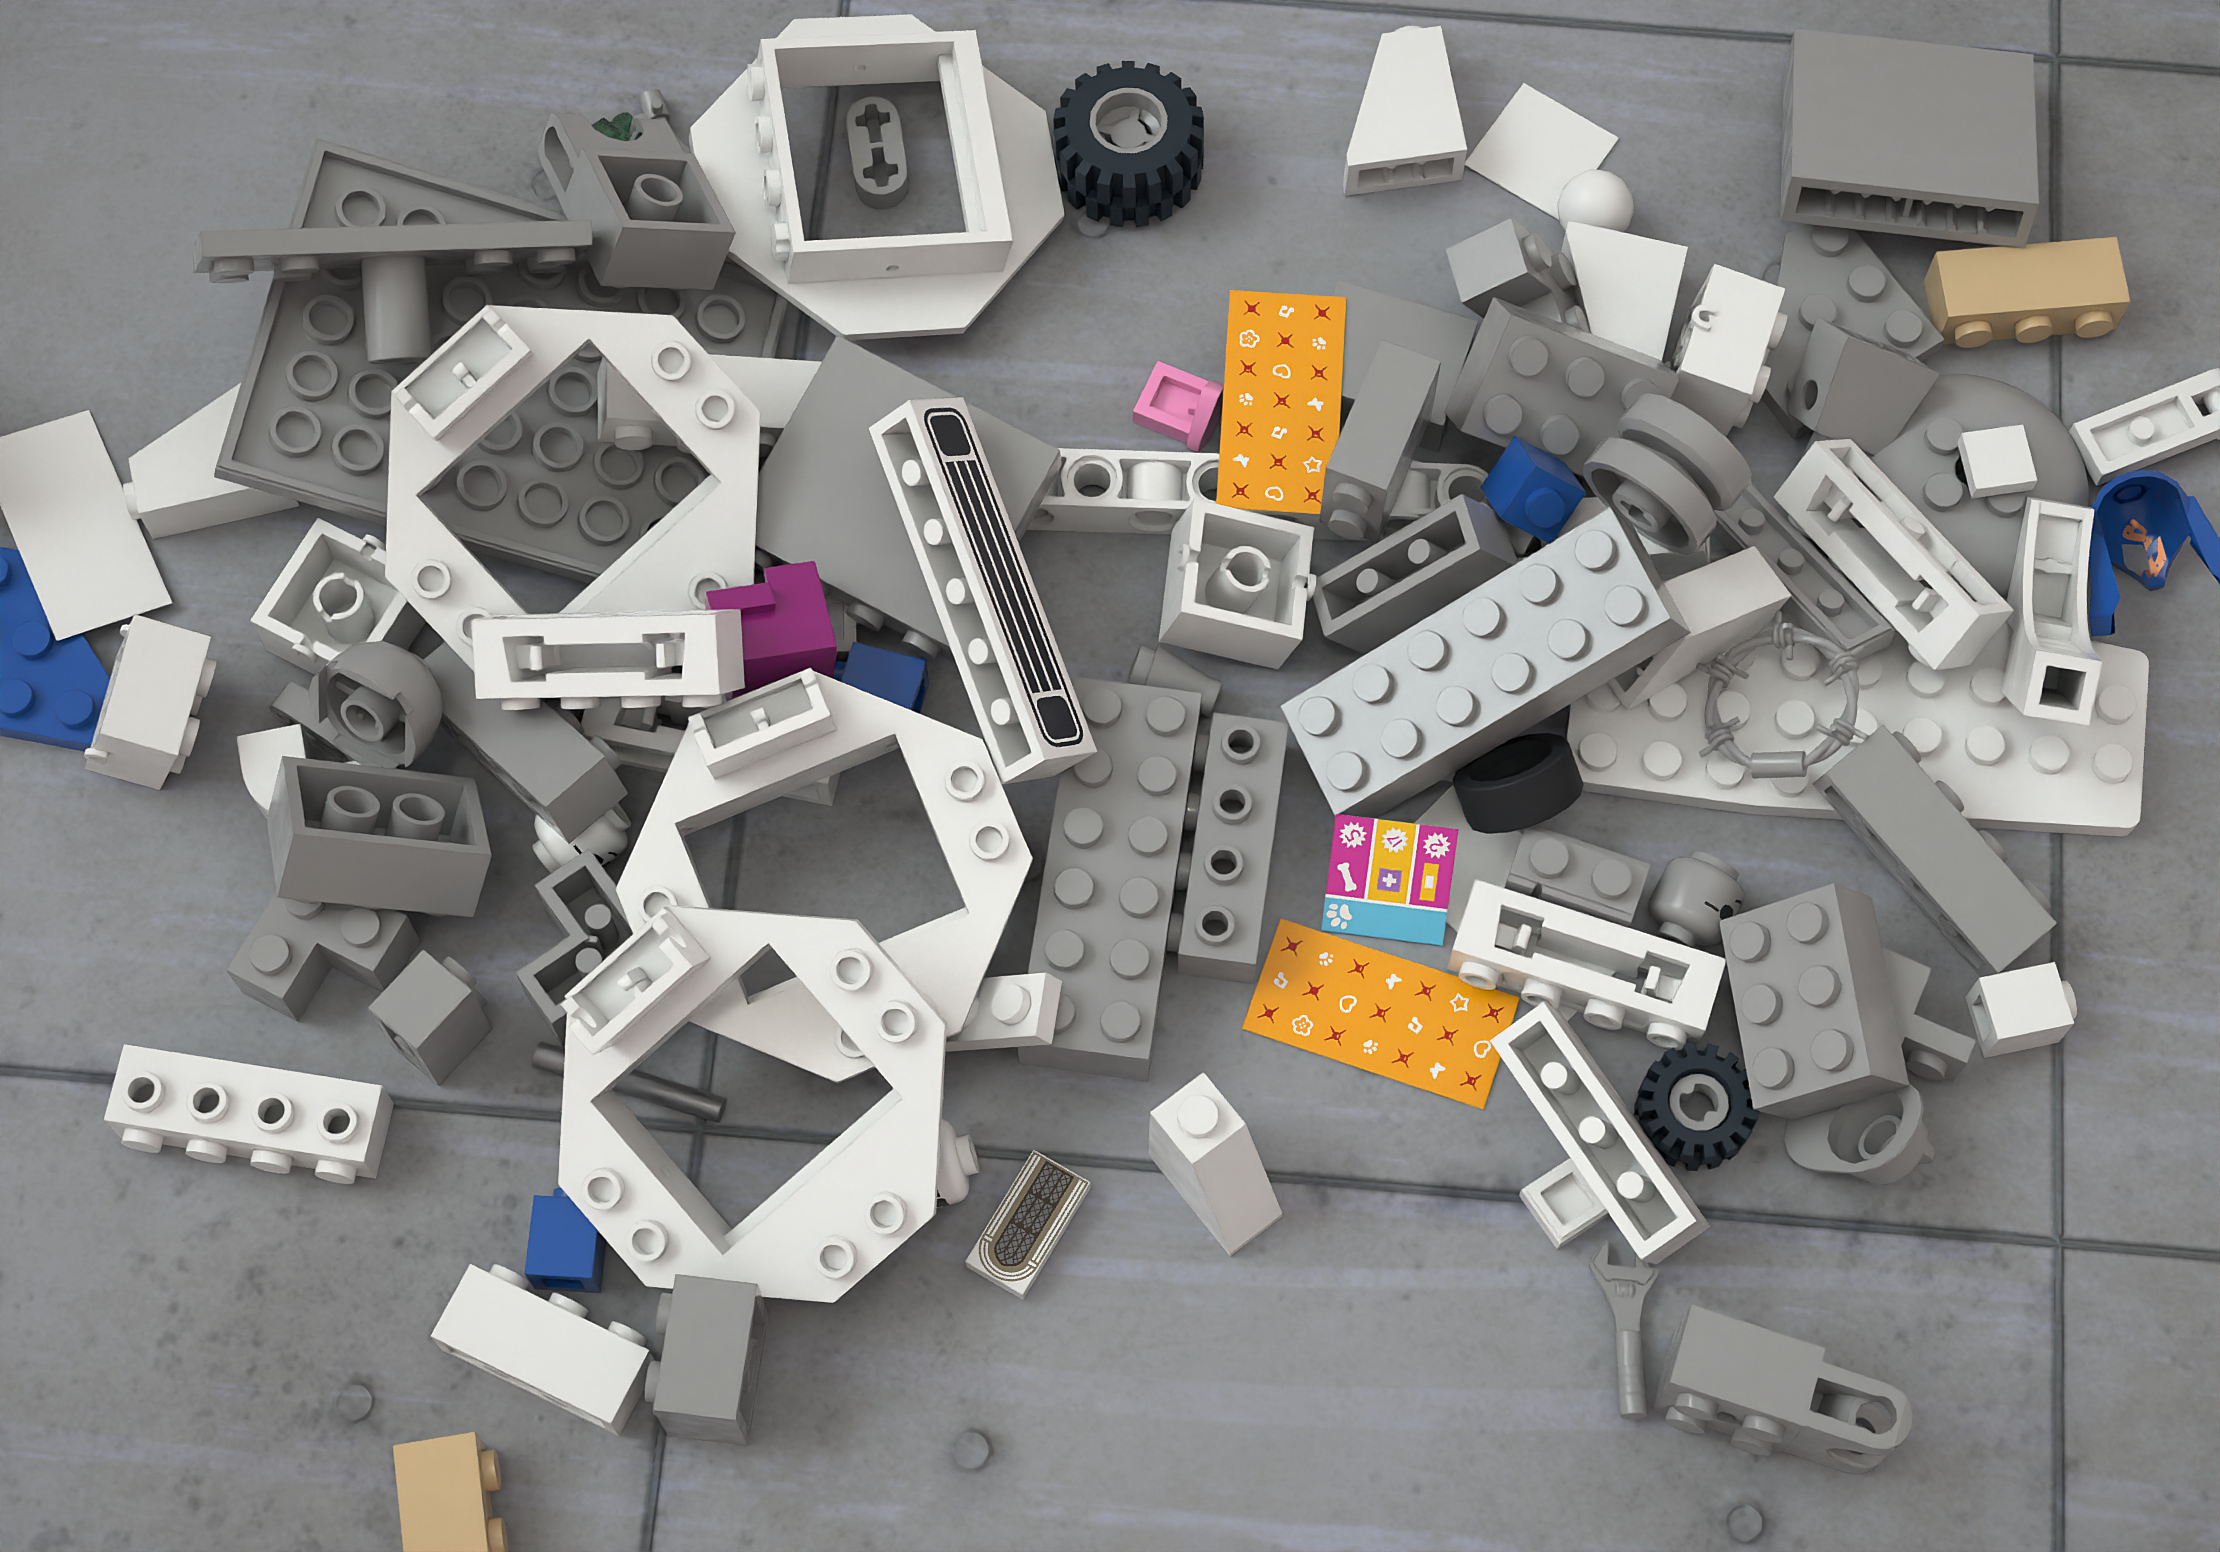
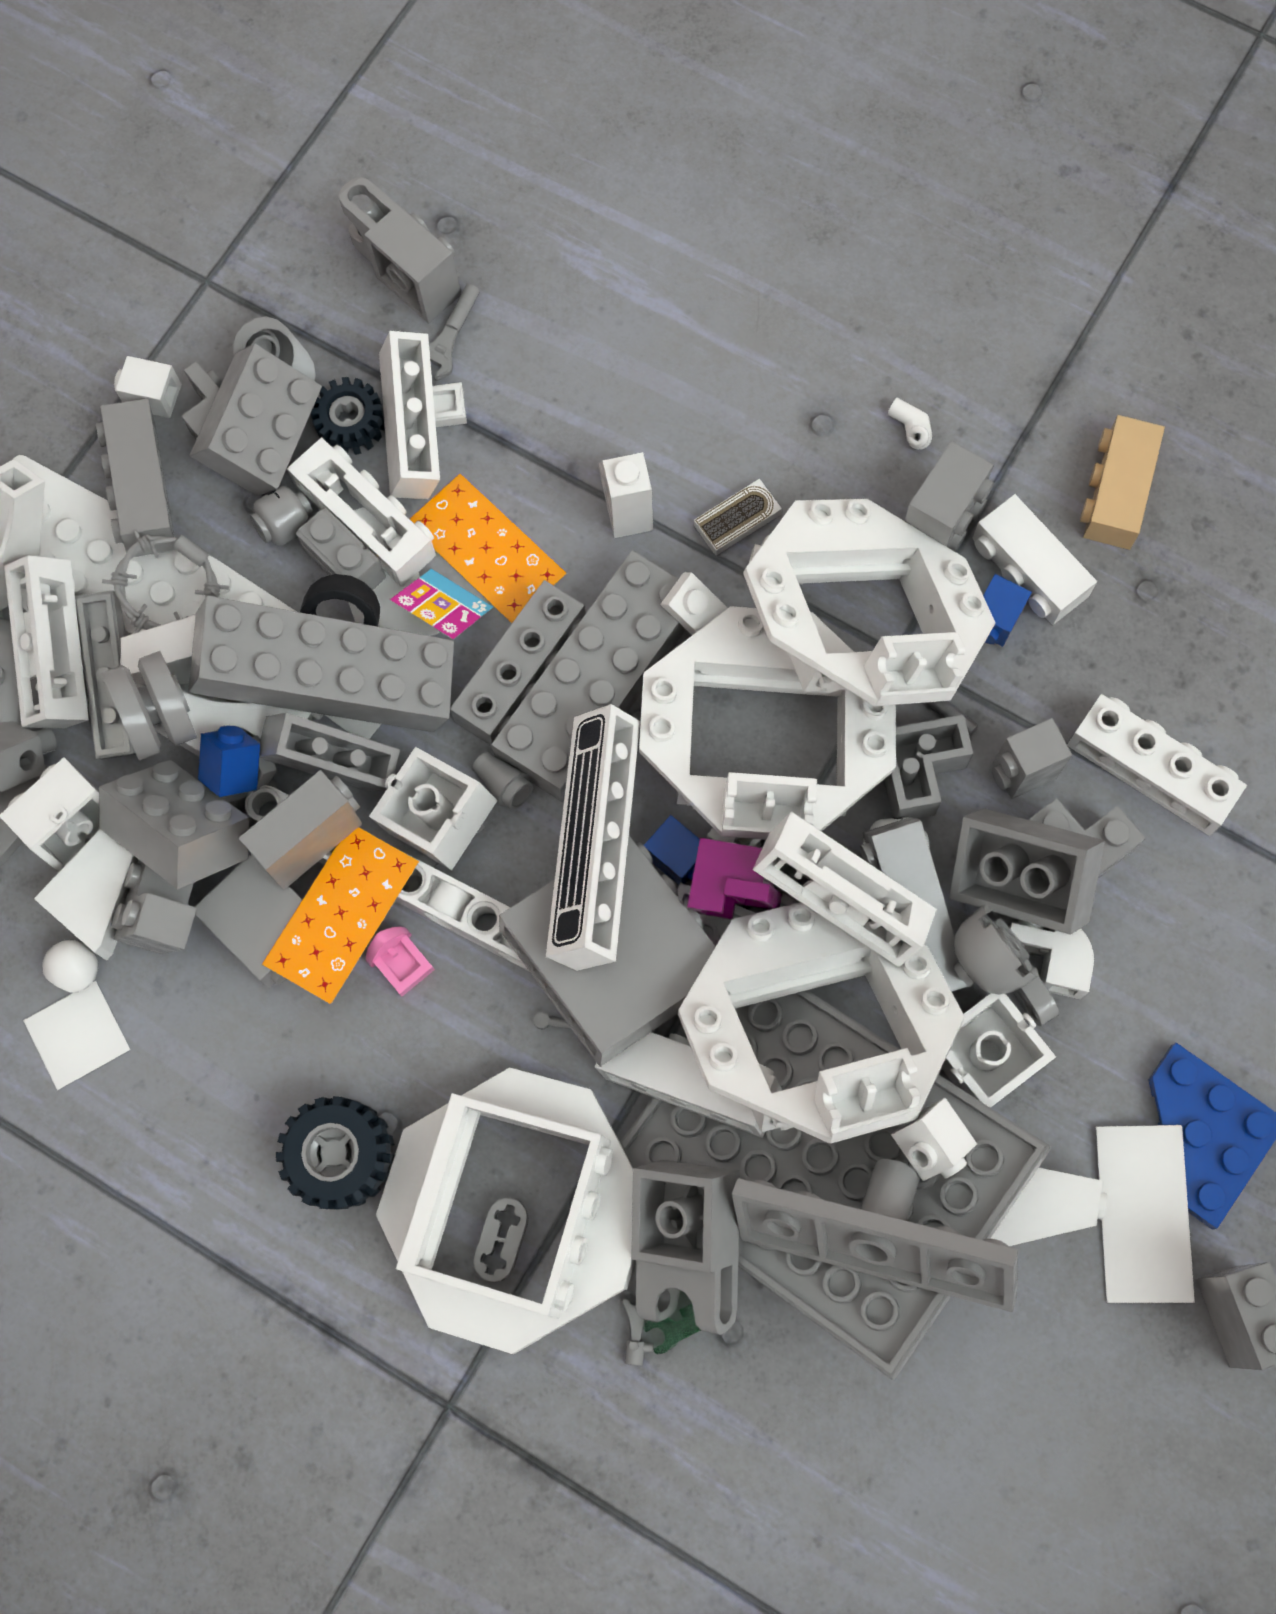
camera: 150 degrees left, 5 degrees up
(148, 703) = (1138, 1034): white brick -> none
(355, 395) = (935, 1141): none -> white brick
(818, 1505) = (916, 423): none -> white arm
(1408, 117) = (145, 1092): white slope -> none

